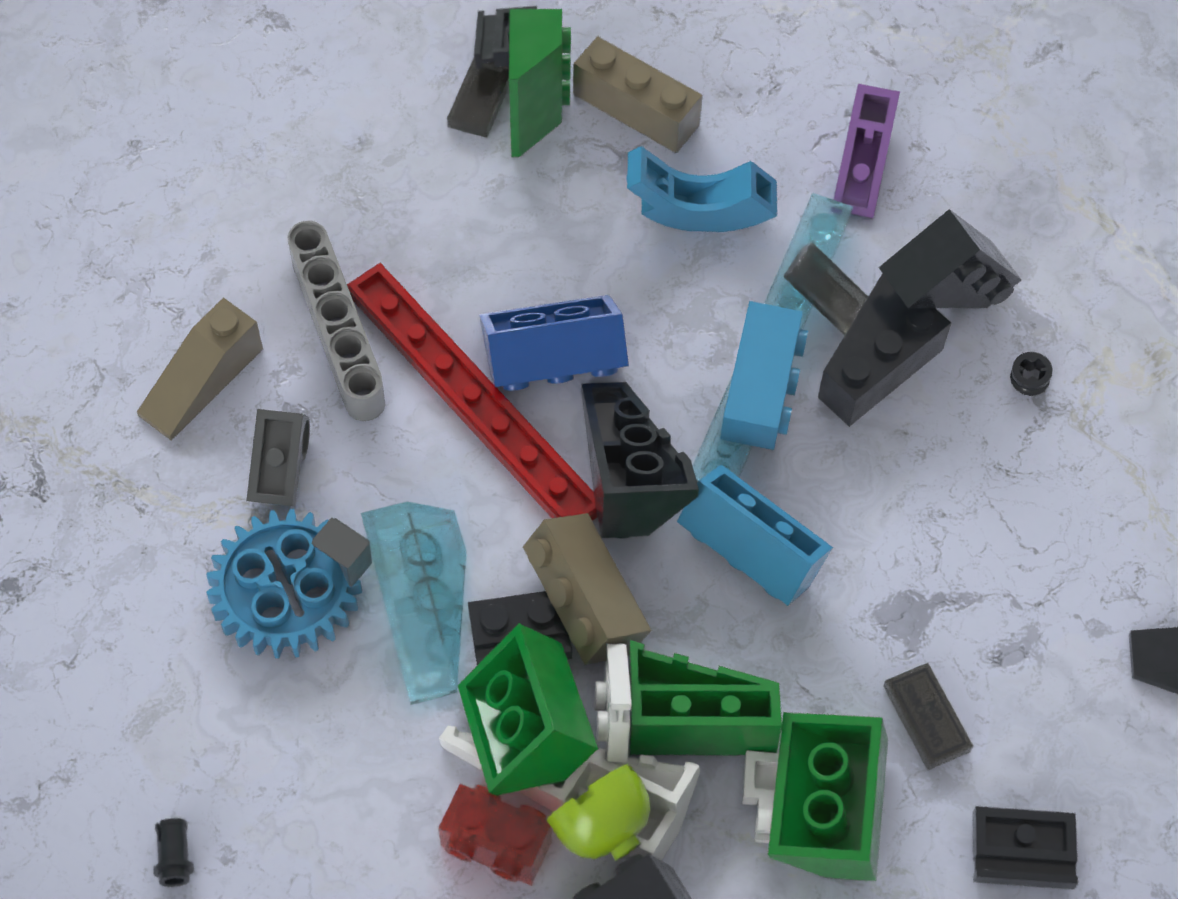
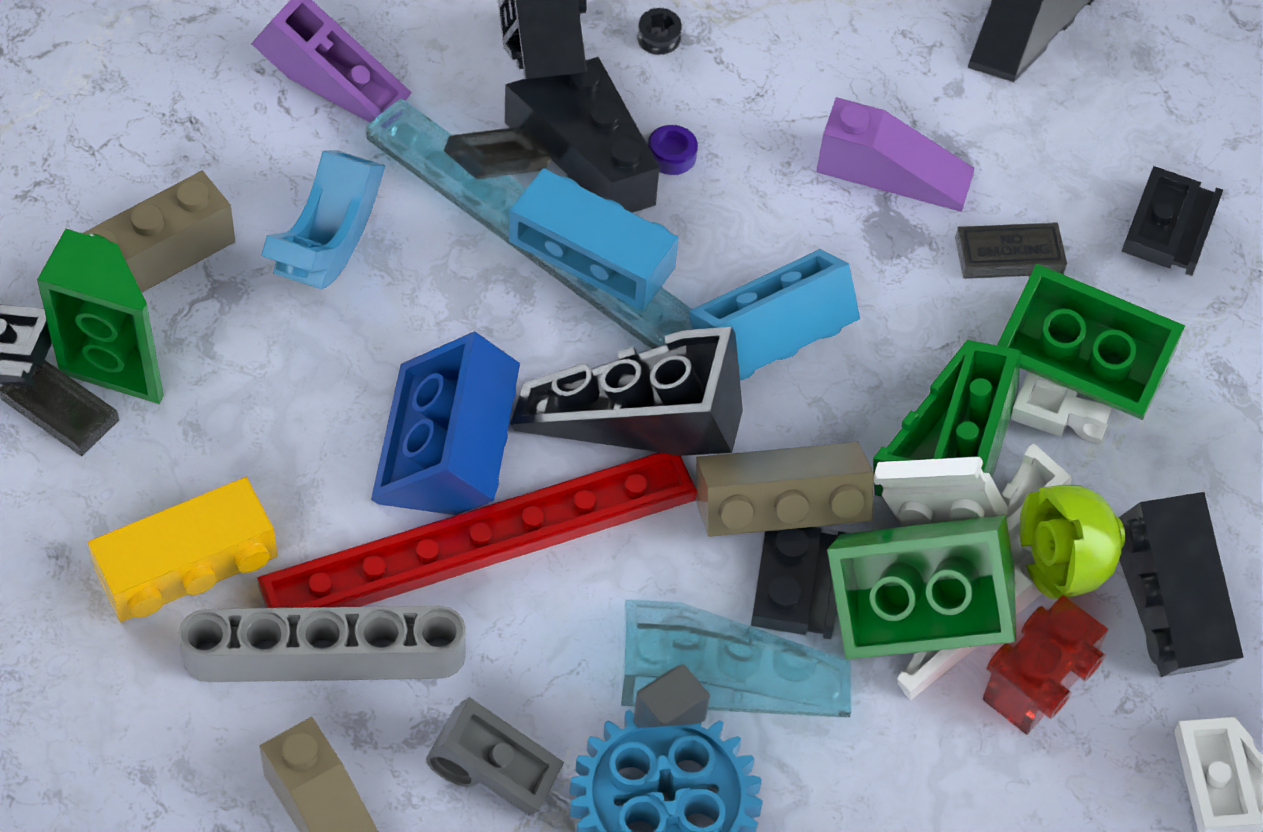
camera: 75 degrees left, 5 degrees down
(382, 208) = (183, 550): none -> yellow brick
(908, 420) = (673, 149): none -> dark purple tile
(978, 590) = (888, 155): none -> medium lavender slope

